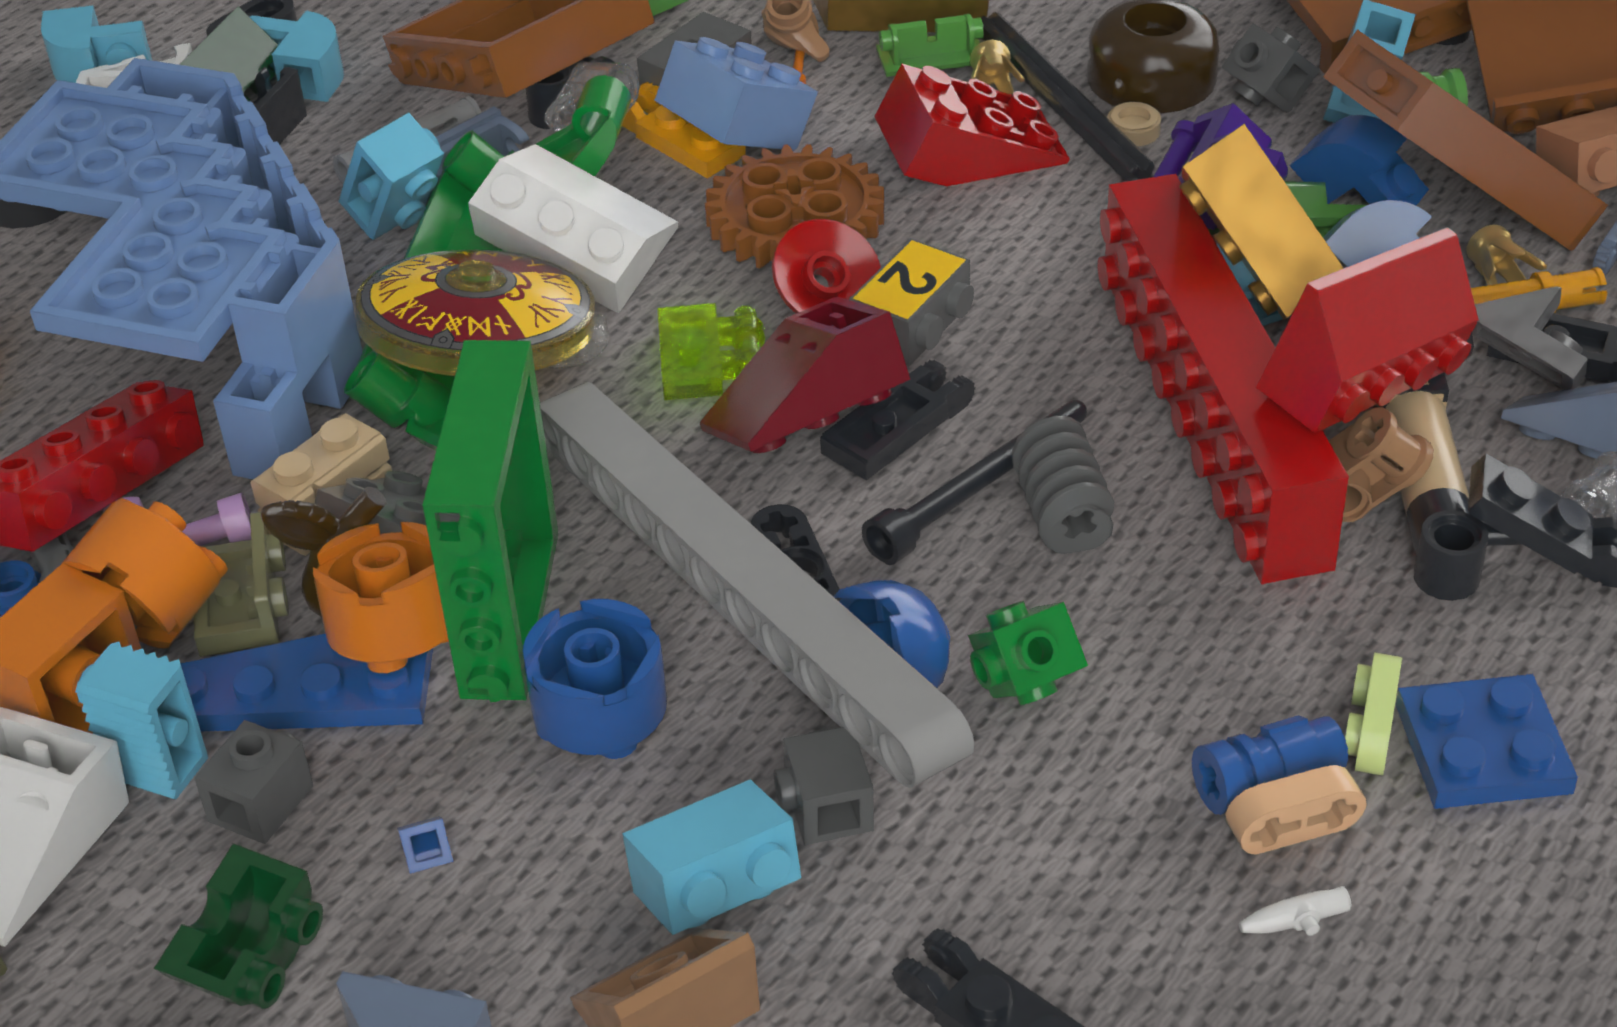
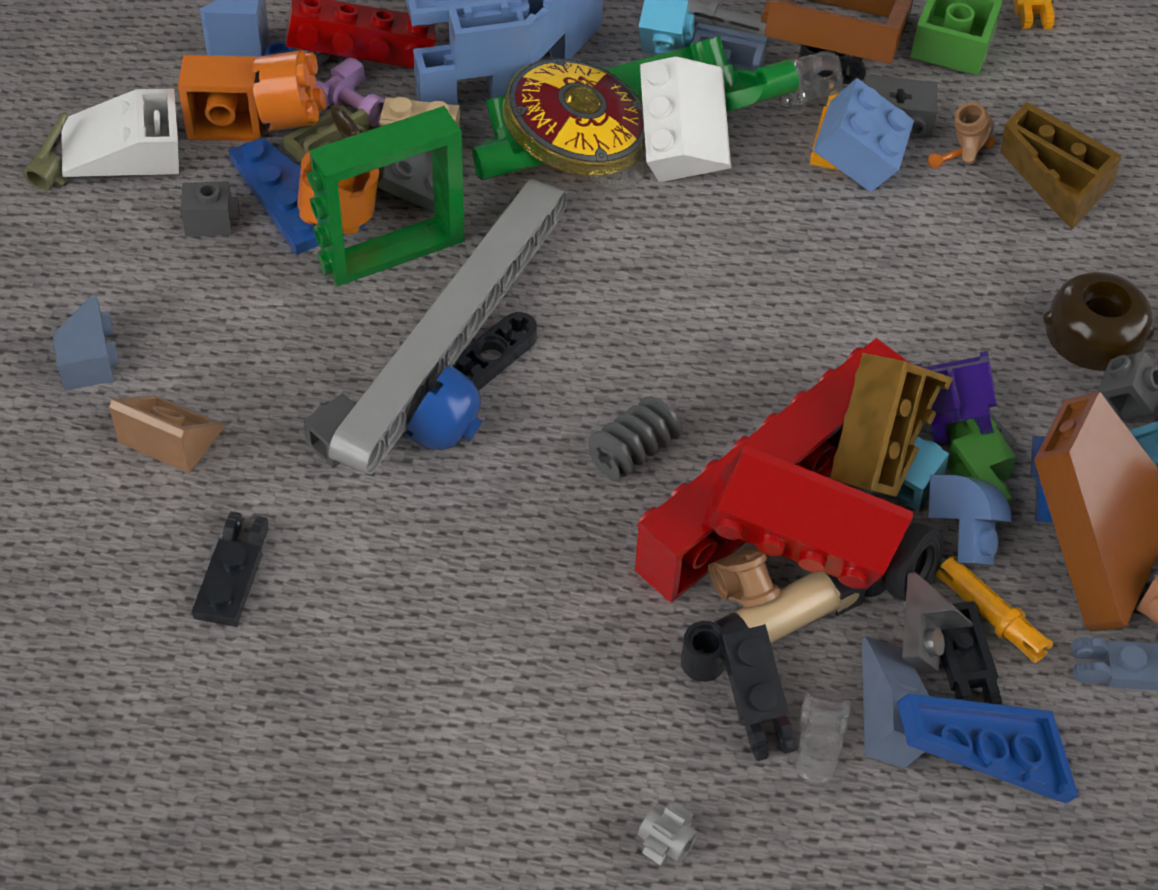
camera: 55 degrees right, 10 degrees up
(148, 713) = (205, 142): medium azure brick -> none
(247, 932) = (108, 256): dark green cylinder -> none
(425, 844) = (217, 293): piece -> none
(595, 678) = (346, 300): blue brick -> none
(691, 351) = (639, 224): clear neon green plate -> none
(712, 856) = (255, 403): medium azure brick -> none
(771, 195) = (799, 213): dark orange gear -> none
(809, 373) = (638, 283): dark red slope -> none
(825, 250) = (741, 233): red dish -> none
(884, 430) = (648, 341): black hinge -> none
(894, 533) = (551, 380): black piece -> none
(910, 45) = (1018, 212): bright green hinge -> none
(922, 291) = (749, 302): brick -> none
(963, 129) = (943, 261): red slope -> none
(992, 65) = (1022, 244): pearl gold piece -> none
(1025, 651) = (481, 473): green brick -> none
(1069, 102) = (1027, 289): black axle -> none
(1137, 121) = (1028, 342): tan tile -> none
(1280, 750) = (476, 621): blue axle -> none
(1295, 809) = (445, 645): light nougat beam -> none
(1298, 912) = (378, 677): white helmet -> none
(1370, 733) = (543, 658): yellowish green plate -> none
(1485, 741) = (565, 724): blue plate -> none
(1495, 253) = (1034, 580): pearl gold piece -> none

